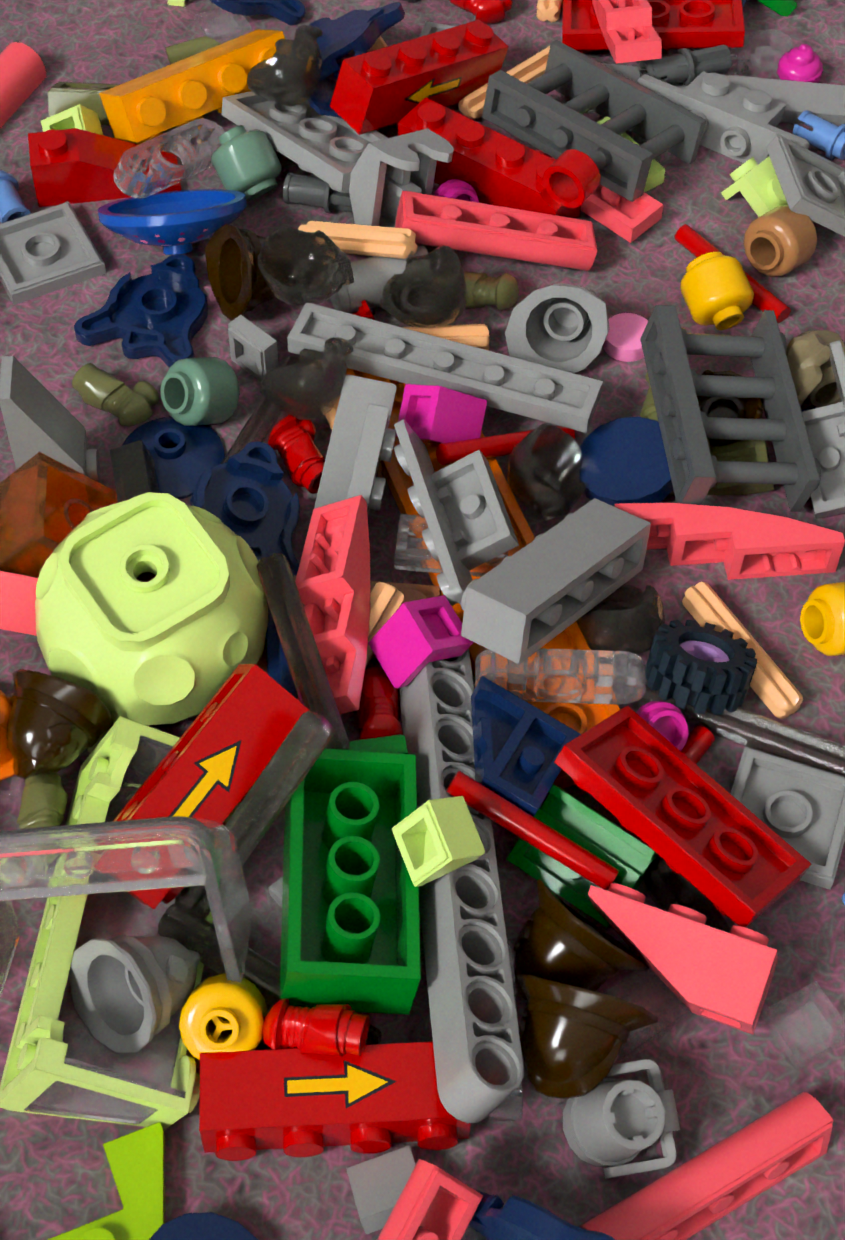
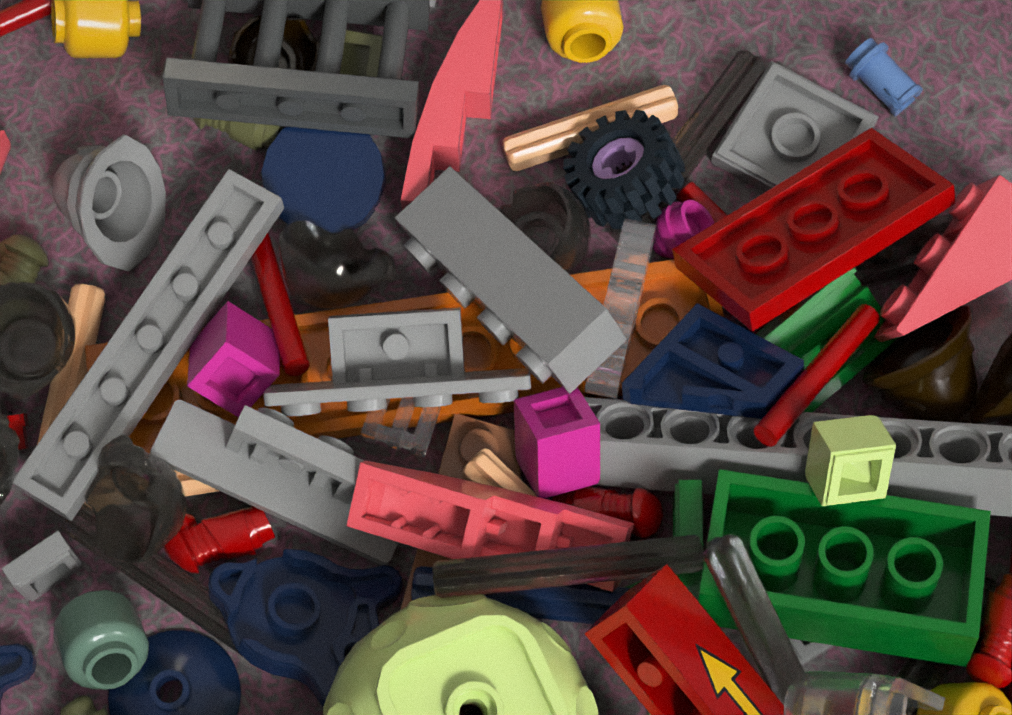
camera: 75 degrees left, 15 degrees up
(624, 337) = (127, 120): bright pink tile -> none

